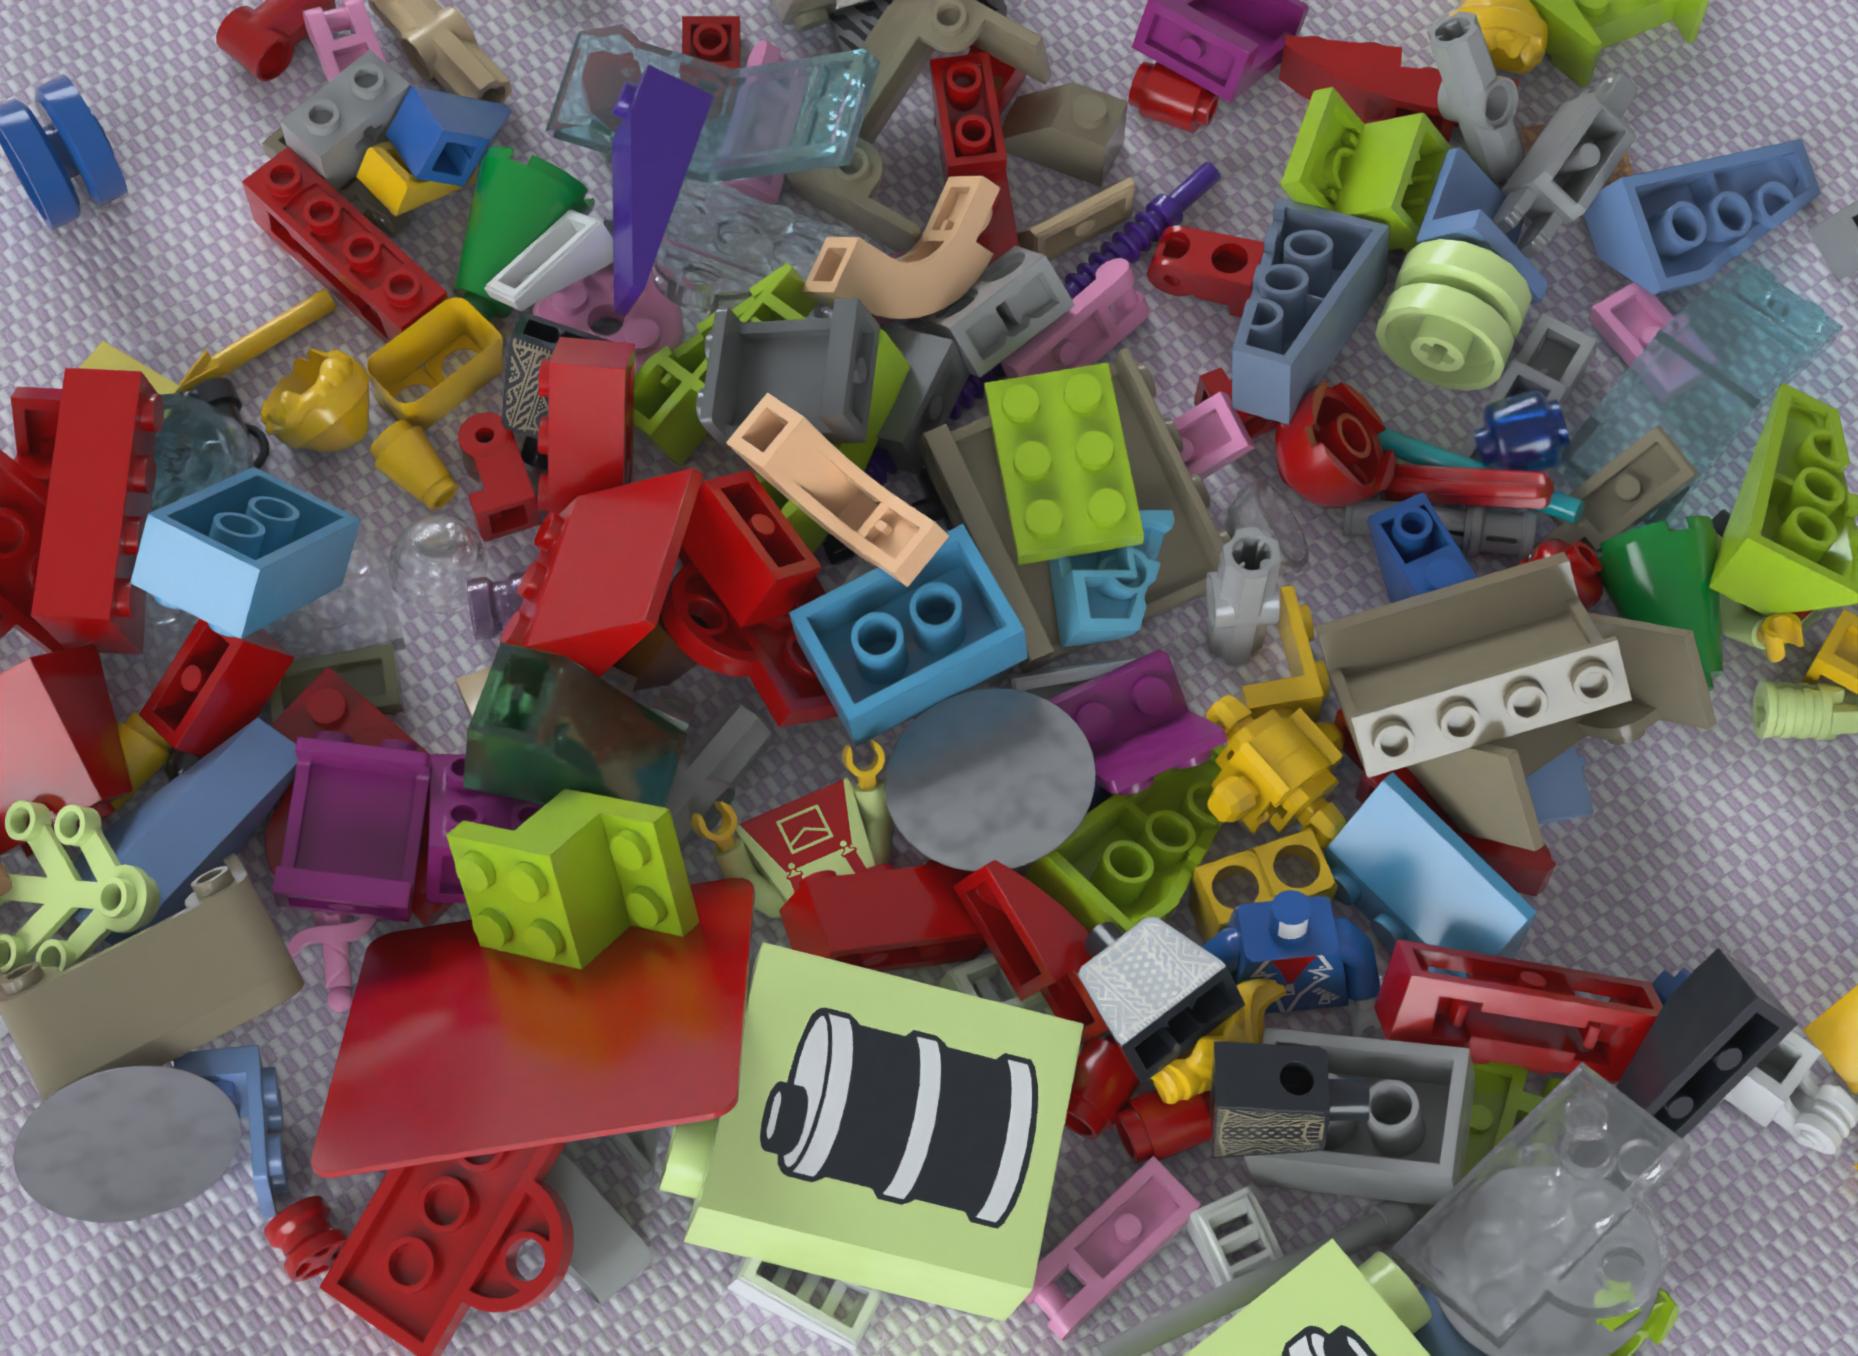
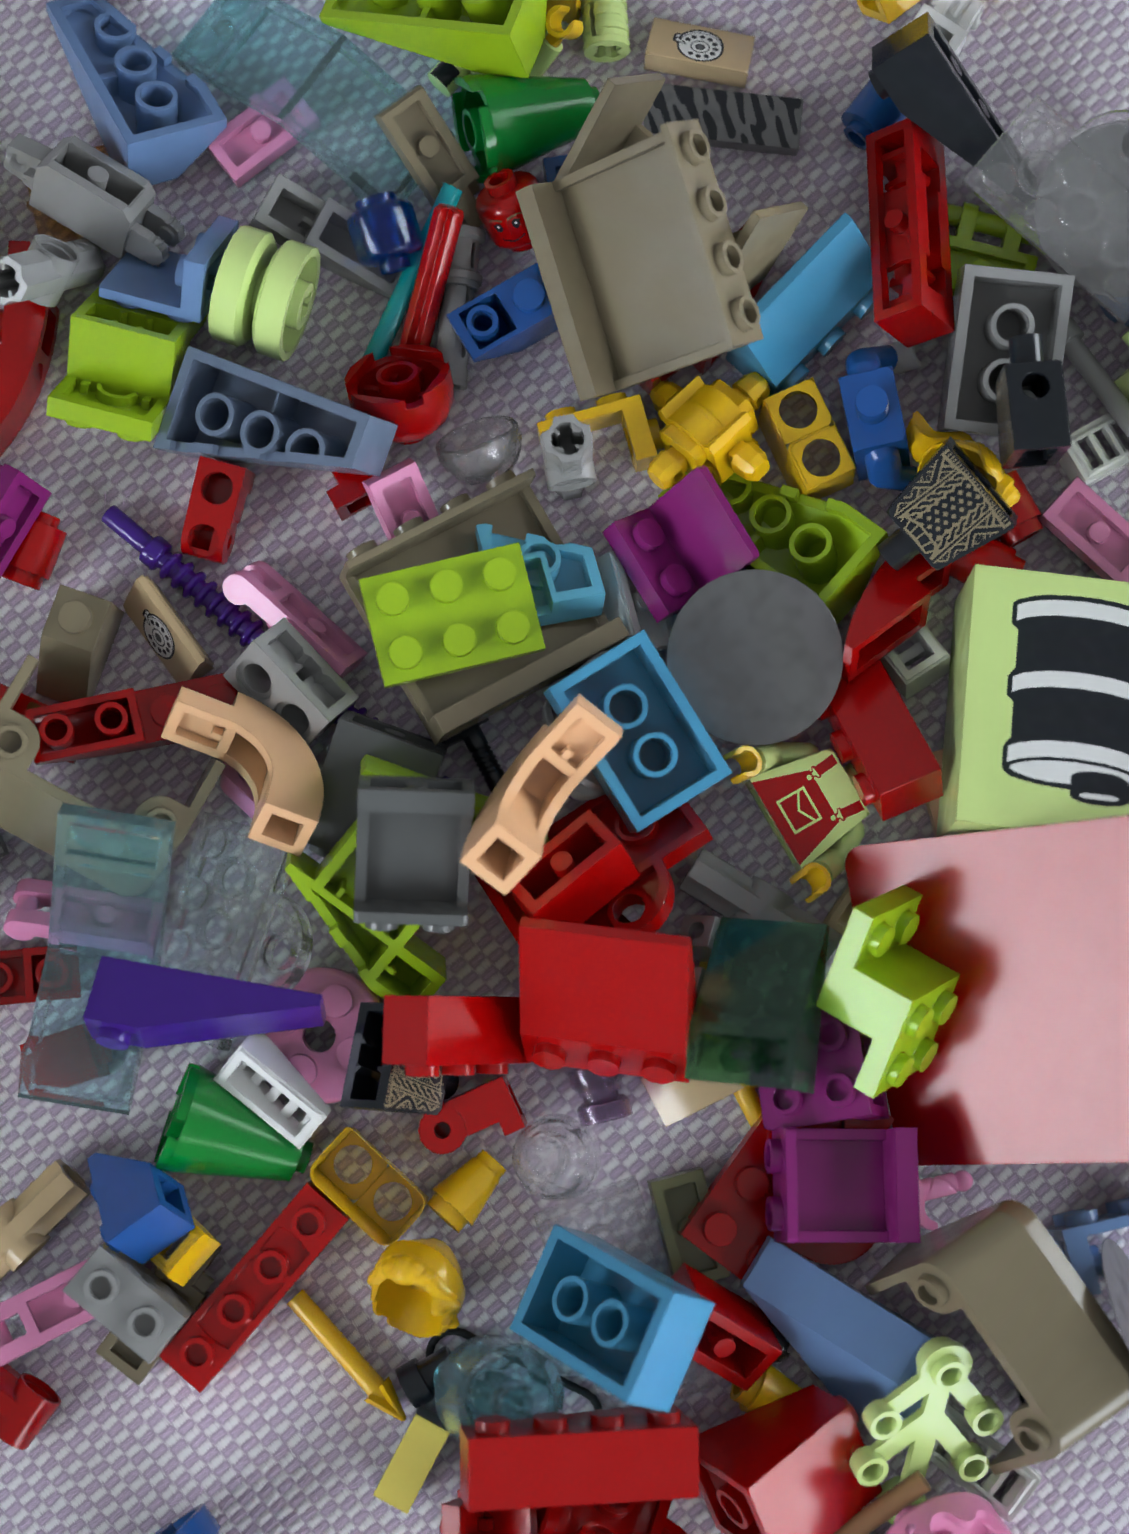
camera: 90 degrees left, 20 degrees up
(1679, 840) = (732, 117): none -> tile
(1766, 819) = (699, 52): none -> tan slope

